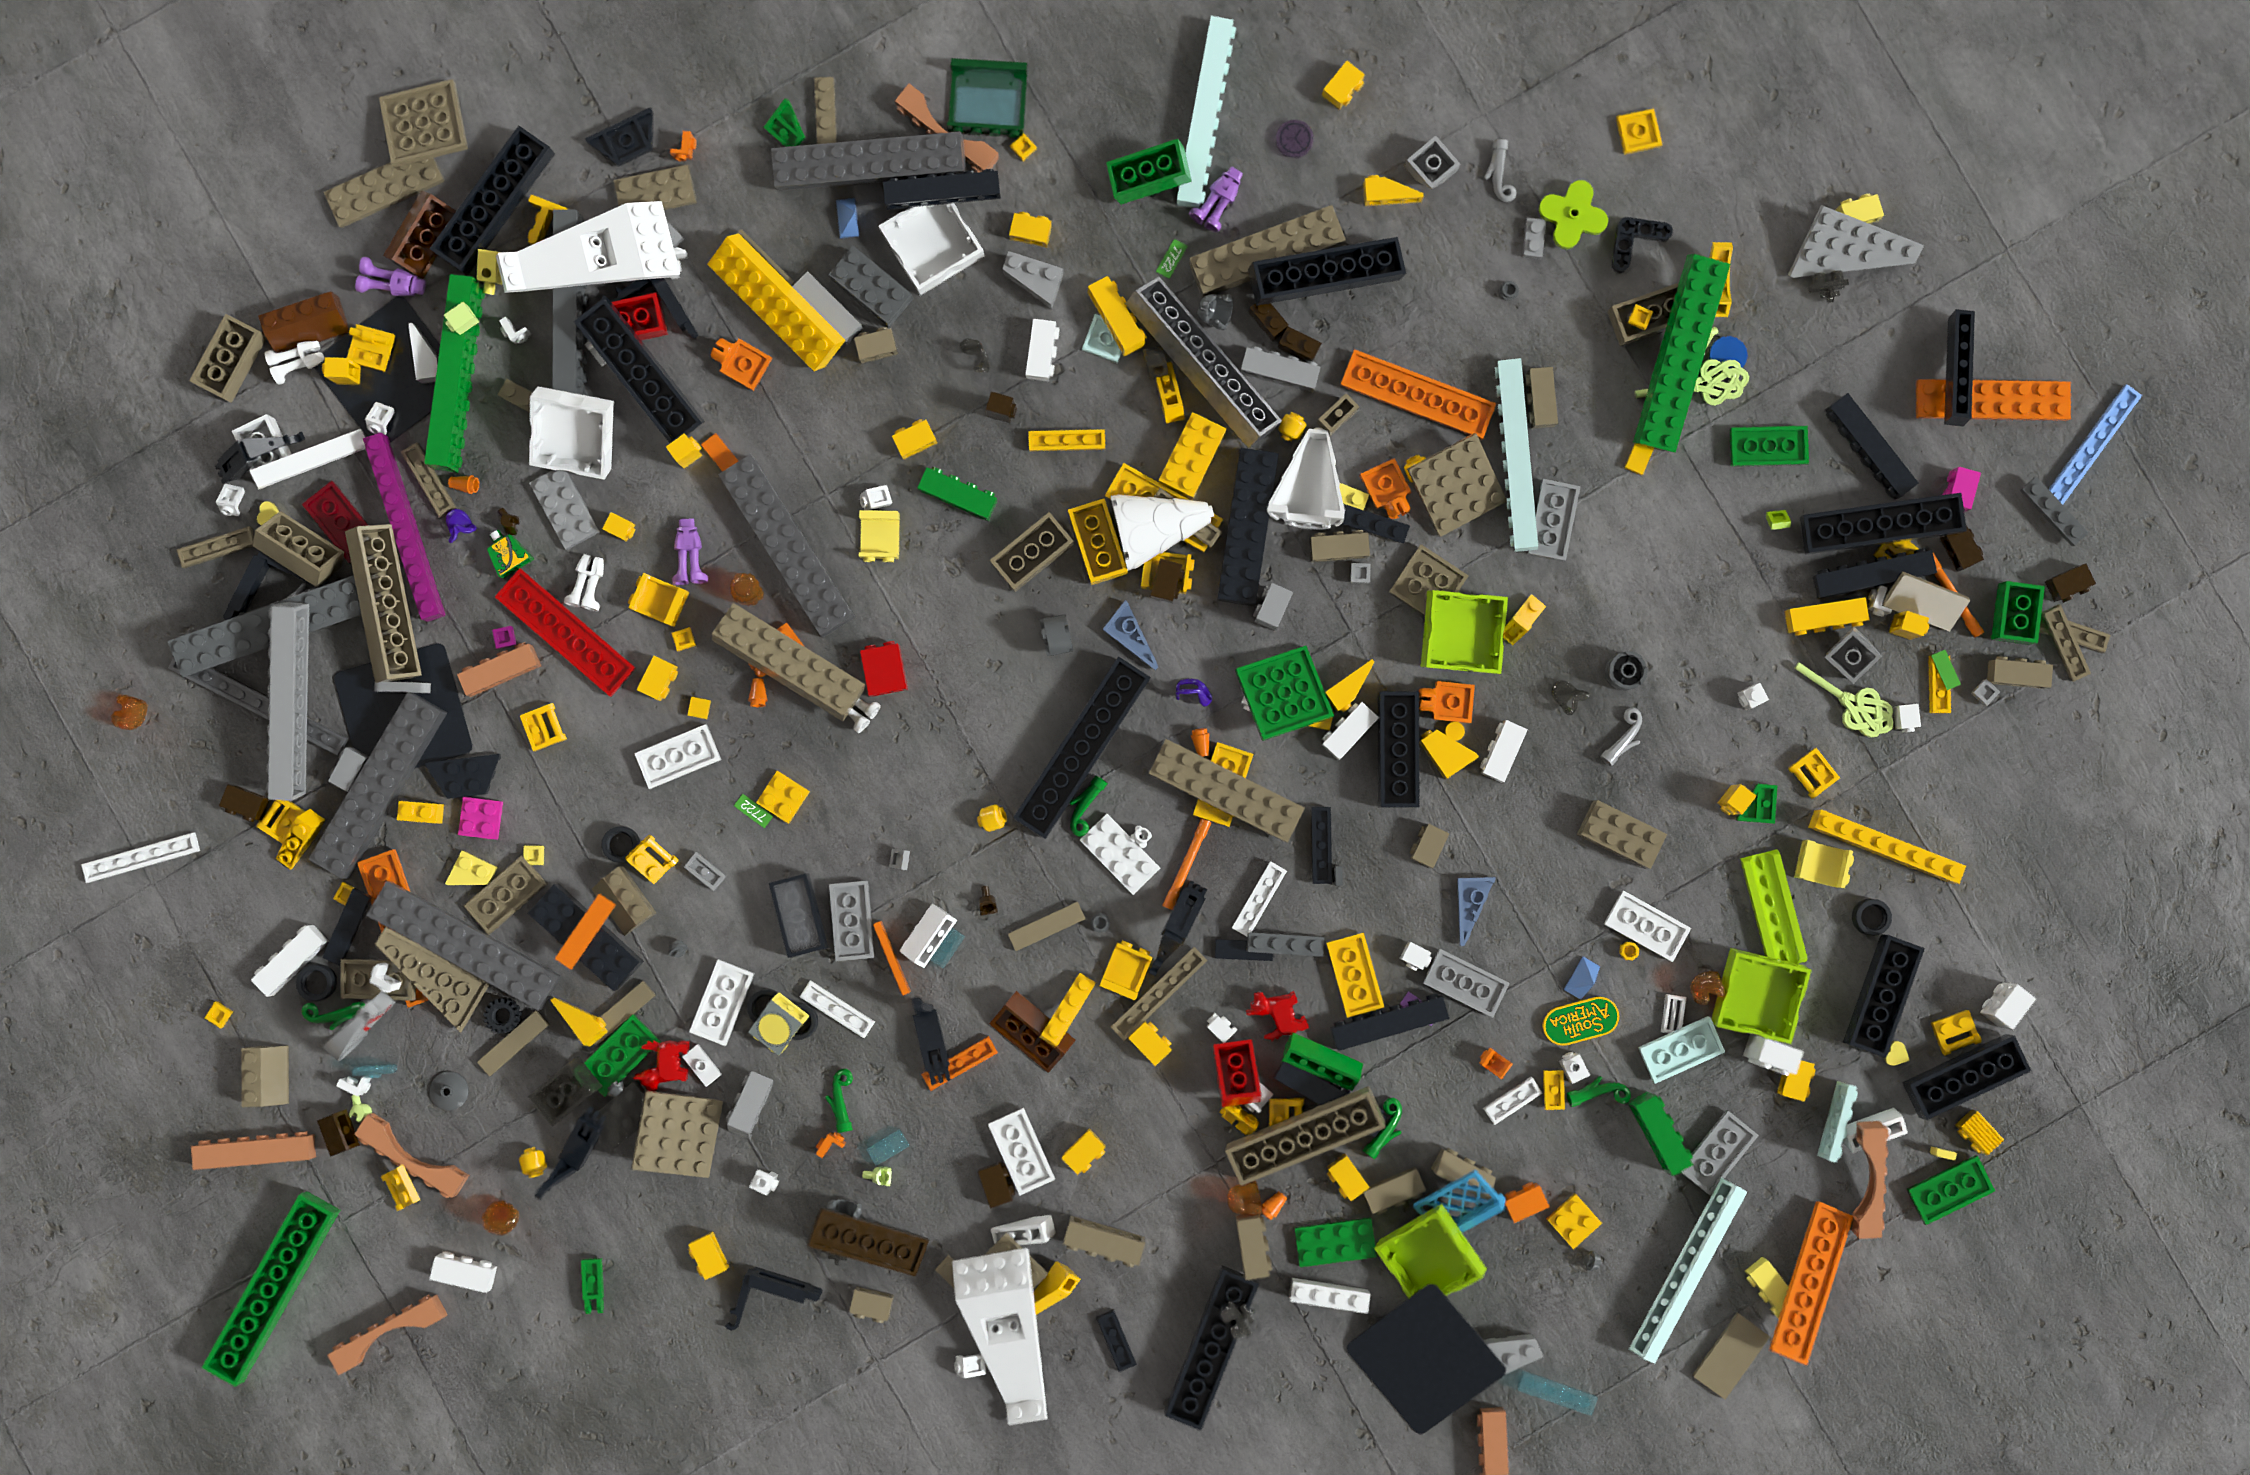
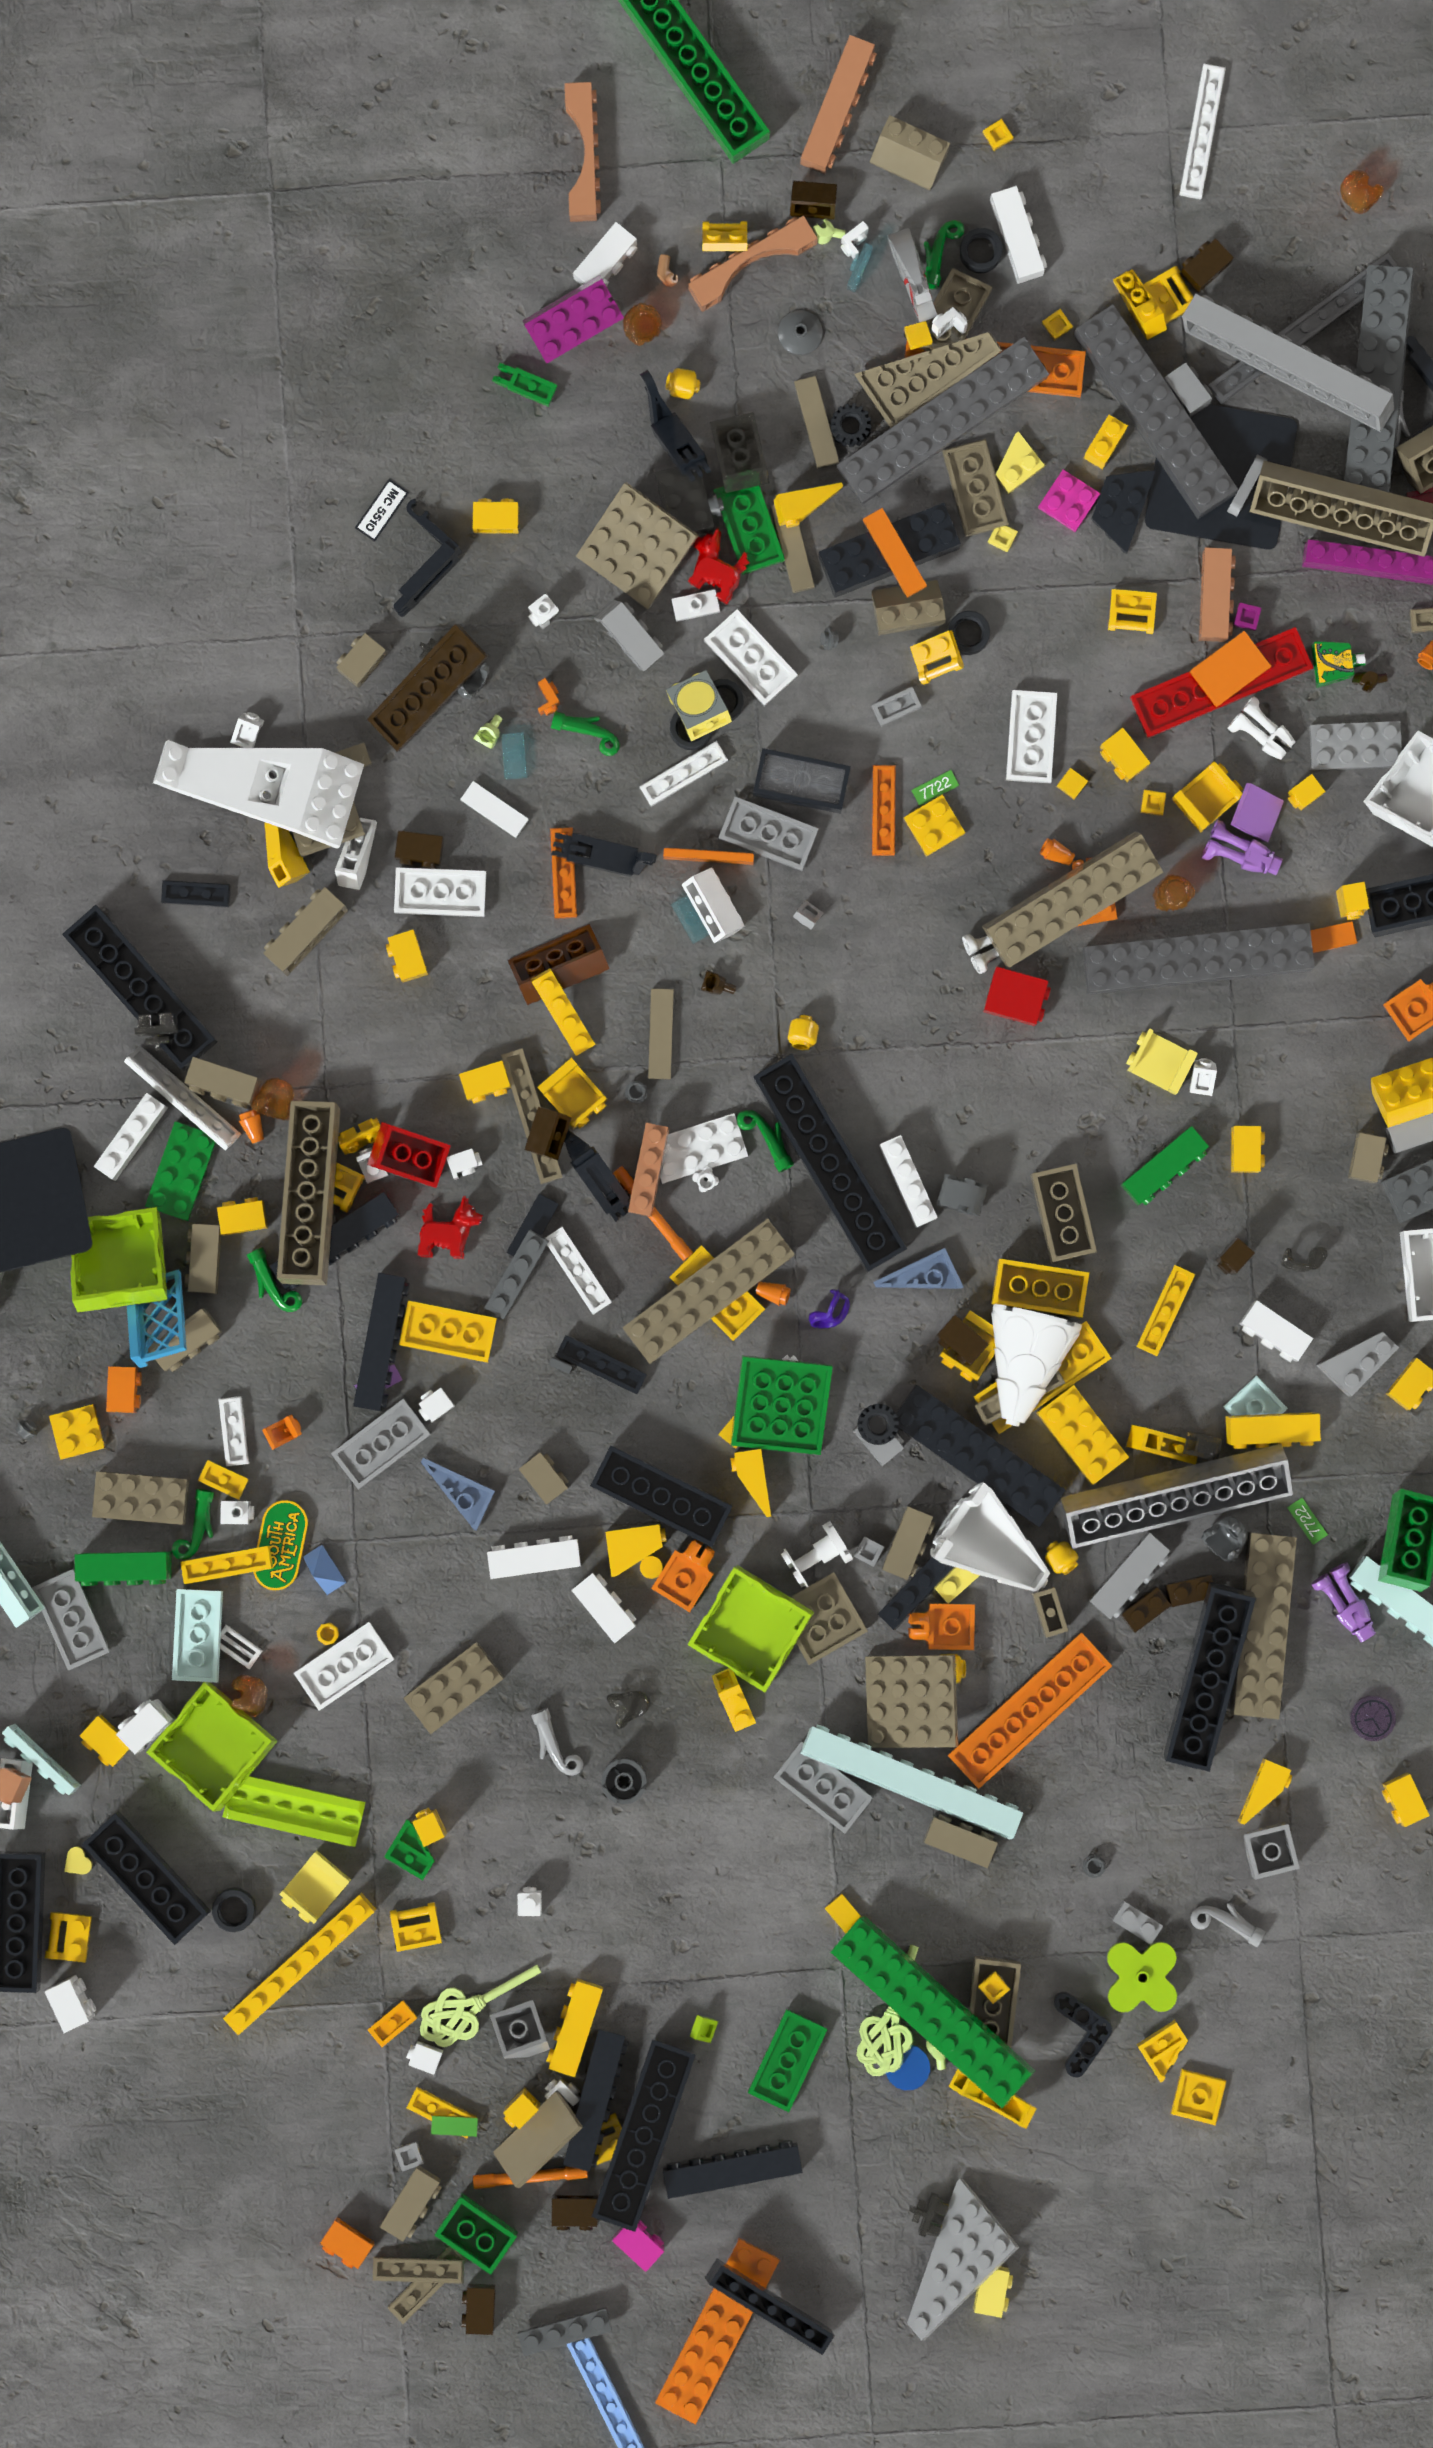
camera: 120 degrees right, 0 degrees up
(347, 926) = (1023, 310): black tile -> none
(405, 998) = (918, 335): none -> yellow tile
(452, 1221) = (665, 273): none -> medium nougat arm
(457, 522) = (1393, 625): dark purple piece -> none
(522, 1274) = (573, 319): none -> magenta piece
(551, 630) = (1230, 669): none -> orange tile
(652, 556) = (1257, 812): none -> medium lavender tile
(746, 1347) = (381, 510): none -> sticker
(790, 841) = (883, 810): none -> orange tile
(937, 1141) = (494, 809): none -> white tile
(1066, 681) = (908, 1181): none -> white brick
(1156, 883) = (648, 1169): none -> nougat brick
(1167, 974) = (548, 1133): none -> dark brown brick
(1264, 622) = (892, 1424): none -> black tyre
(1281, 1265) = (182, 1098): none -> white tile
(1322, 1062) = (375, 1250): green brick -> none
(1349, 730) = (708, 1454): white brick -> none
(1377, 606) = (824, 1550): none -> white piece
(1493, 822) = (533, 1558): none -> white brick
(1600, 1146) = (140, 1498): none -> dark tan brick
(1617, 174) = (1162, 2048): none -> yellow wing
(1617, 1054) = (226, 1565): none -> yellow plate
(1894, 754) = (392, 2023): none -> light orange plate
(2074, 706) = (346, 2243): none -> orange brick

